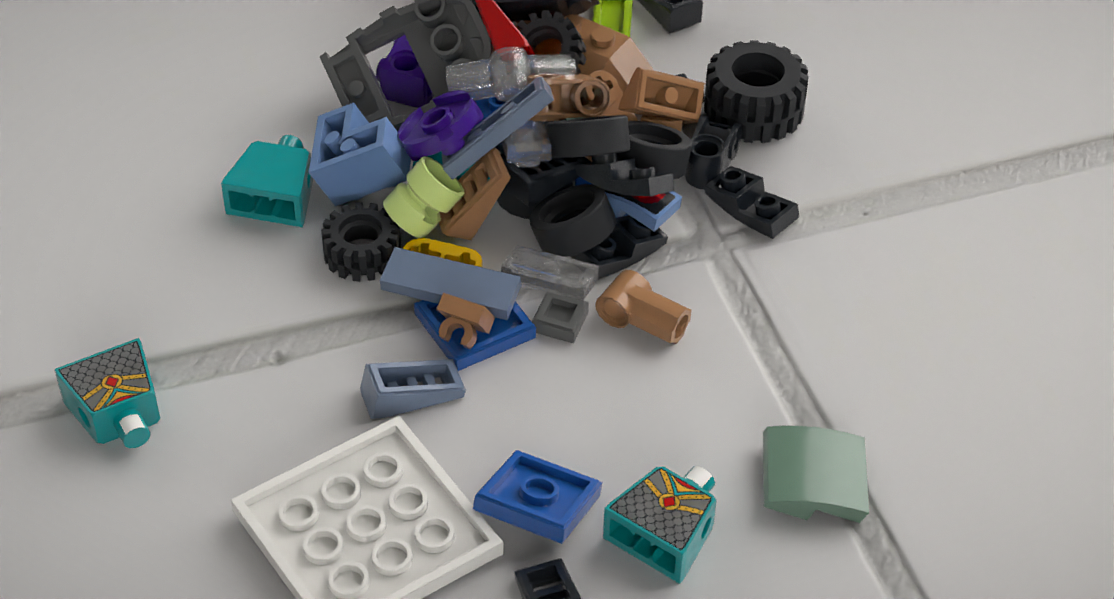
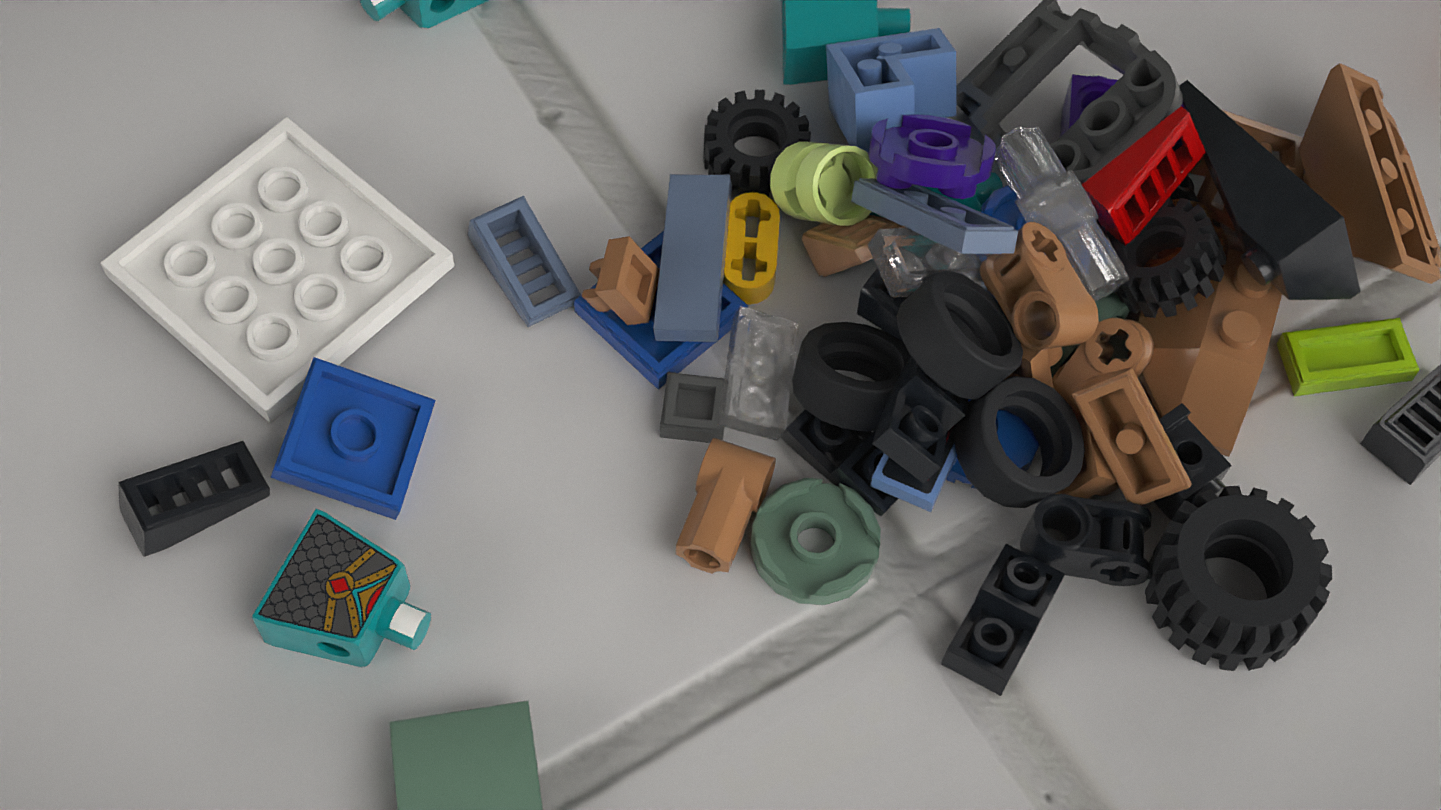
camera: 75 degrees right, 15 degrees up
(669, 257) = (810, 575): none -> sand green tile

